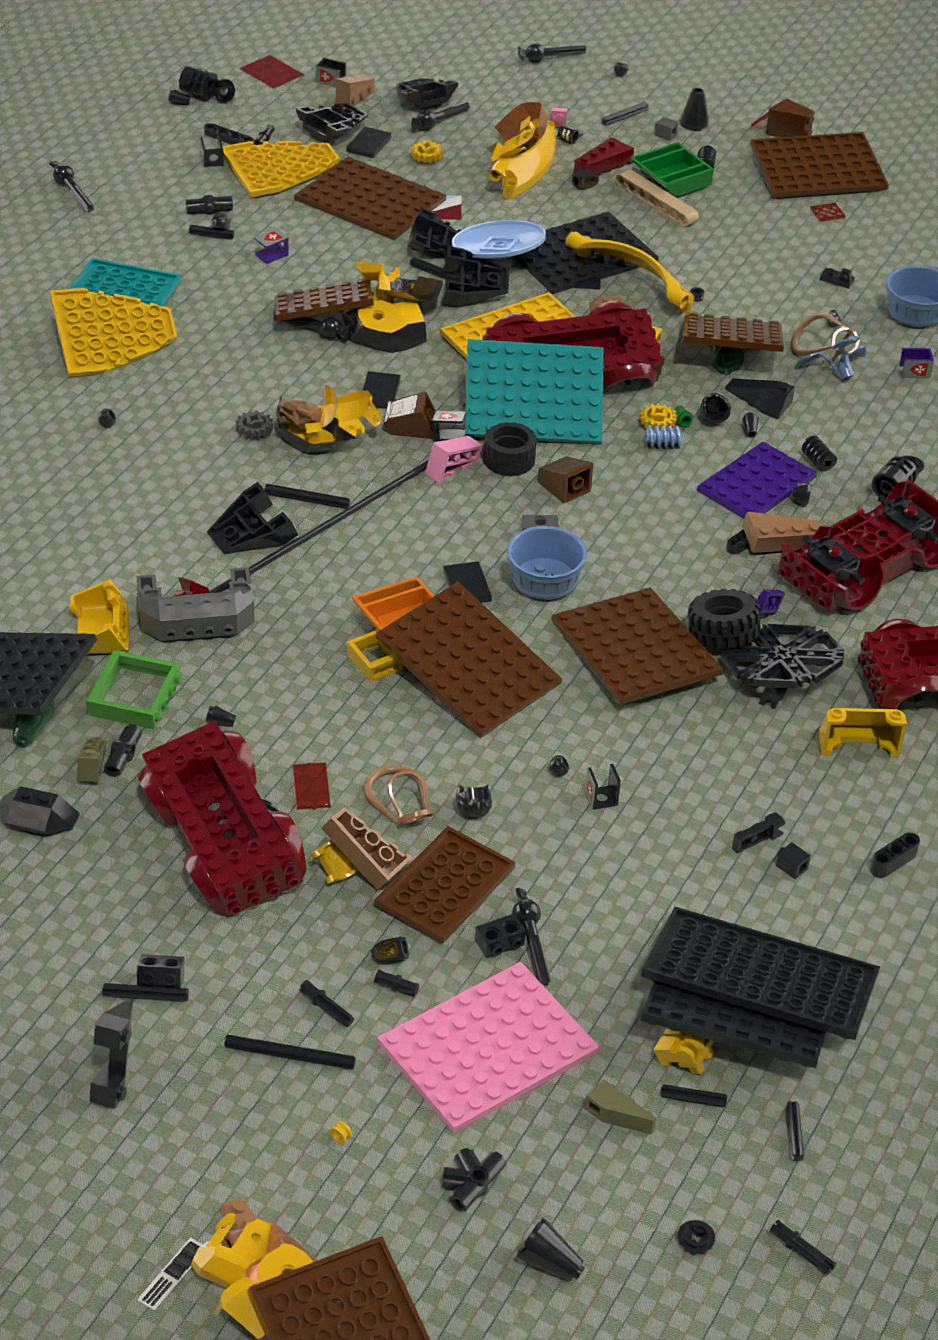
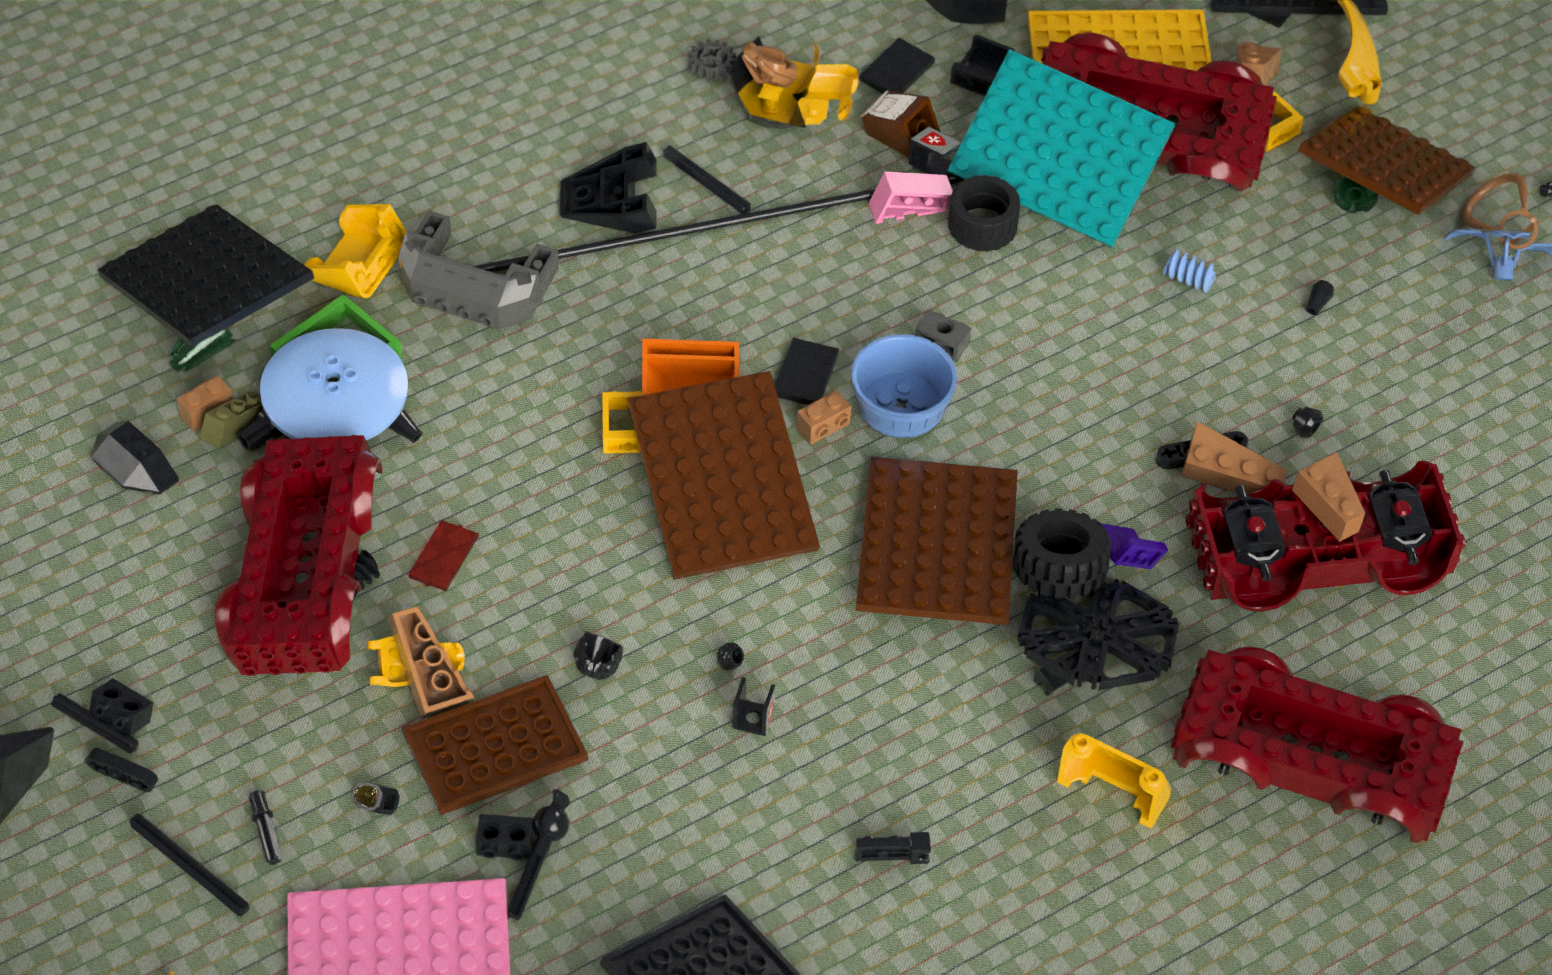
camera: 30 degrees right, 10 degrees up
(63, 756) = (202, 399): none -> medium nougat brick
(137, 723) = (361, 403): none -> light blue dish
(177, 1012) = (121, 769): none -> black beam
(190, 588) = (485, 253): dark red slope -> none
(396, 983) = (354, 839): black pin -> none
(399, 770) = (497, 607): medium nougat animal -> none
(436, 369) = (979, 65): none -> black panel
(505, 601) = (823, 417): none -> medium nougat brick
(567, 478) = (1024, 281): reddish brown slope -> none
(658, 416) = (1206, 240): yellow gear -> none
(684, 417) = (1241, 251): green cone -> none
(698, 294) = (1397, 76): black bush -> none
(715, 408) = (1285, 257): black hair -> none
(756, 481) = (1266, 379): dark purple plate -> none
(768, 395) = (1371, 264): black wedge -> none
(793, 860) = (907, 902): black brick -> none
(819, 453) = (1372, 373): black piece -> none
(867, 518) = (1330, 496): none -> medium nougat wedge
(895, 855) = (1024, 961): black beam -> none
(896, 470) = (1451, 446): black cylinder -> none

